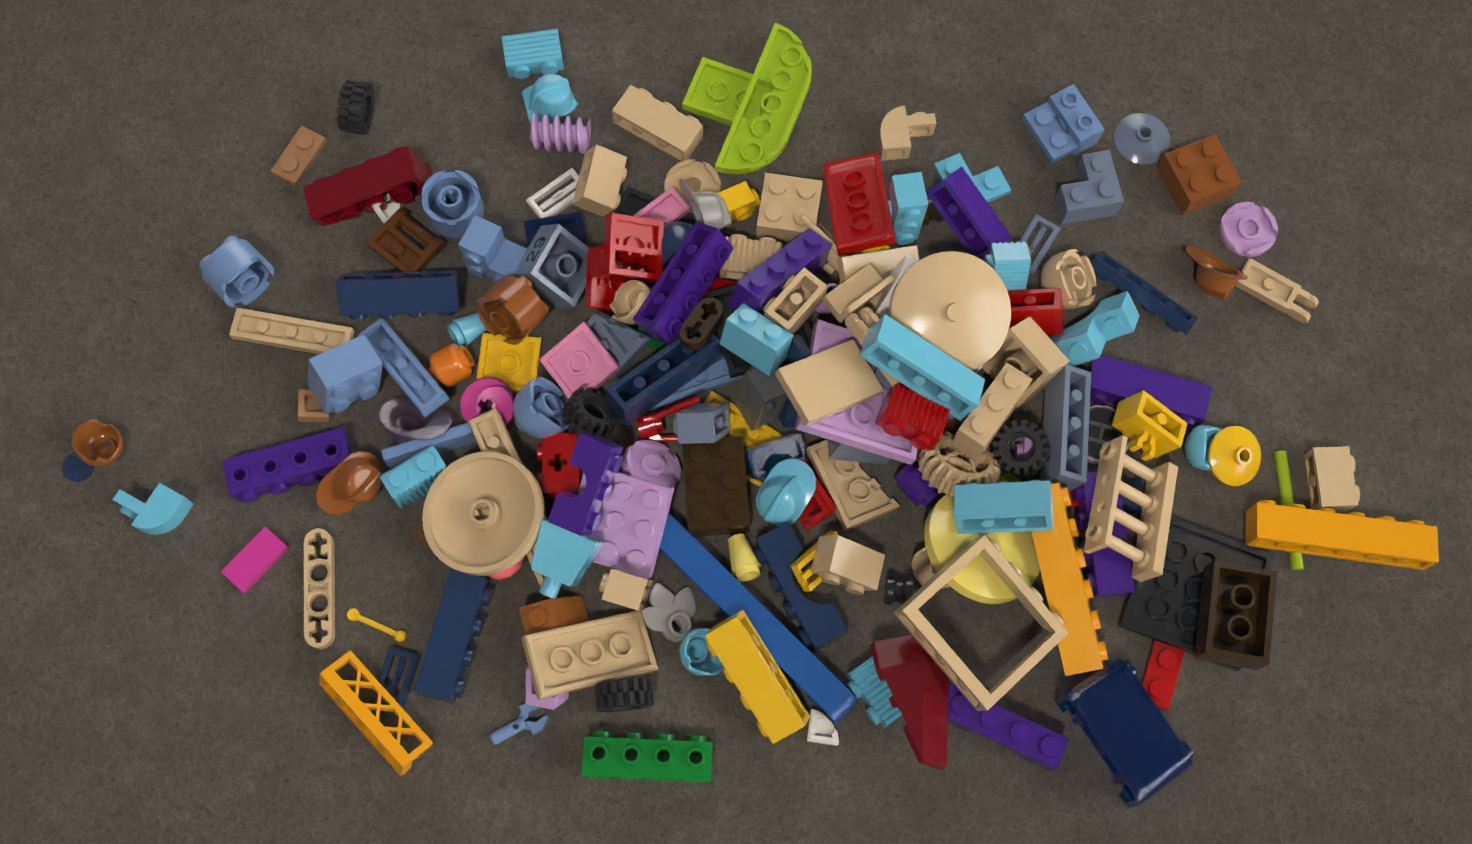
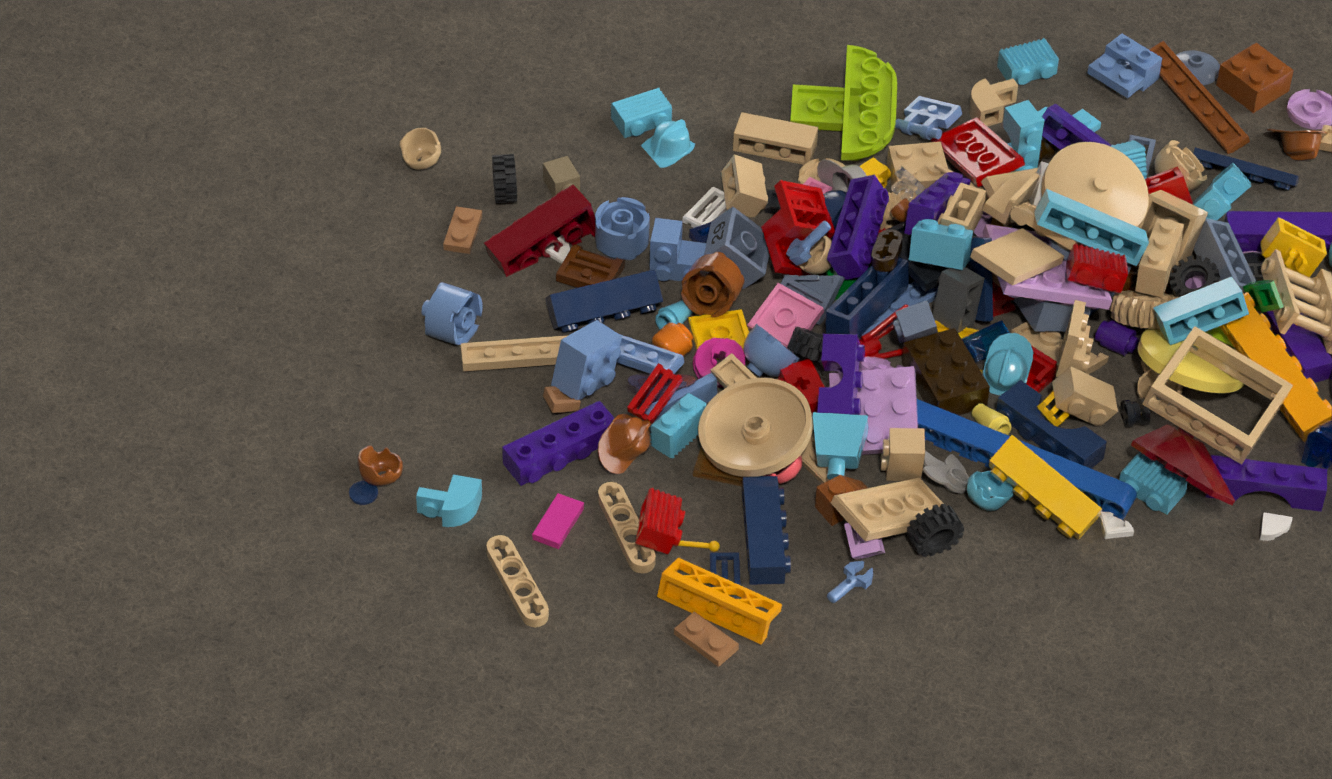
camera: 15 degrees left, 25 degrees down
(178, 626) = (520, 580): none -> tan beam
(286, 37) = (418, 144): none -> tan hair
(346, 600) = (660, 521): none -> red brick
(346, 755) = (706, 639): none -> medium nougat plate
(374, 458) = (666, 375): none -> red tile
(418, 119) = (560, 175): none -> dark tan brick
(560, 134) = (692, 162): lavender piece -> none
(616, 290) = (799, 250): none -> medium blue bar
(647, 758) = (975, 575): green brick -> none
(740, 269) = (900, 210): none -> dark orange hinge
(762, 239) = (907, 182): none -> clear tile
(833, 131) = (931, 114): none -> medium blue plate
(858, 499) = (1076, 341): none -> tan plate
(962, 90) = (1028, 62): none -> medium azure brick
(990, 779) = (1274, 526): none -> white tile
(1082, 503) = (1264, 295): none -> green slope
(1095, 193) = (1169, 106): sand blue brick -> none
(1134, 211) = (1199, 101): none -> dark orange tile

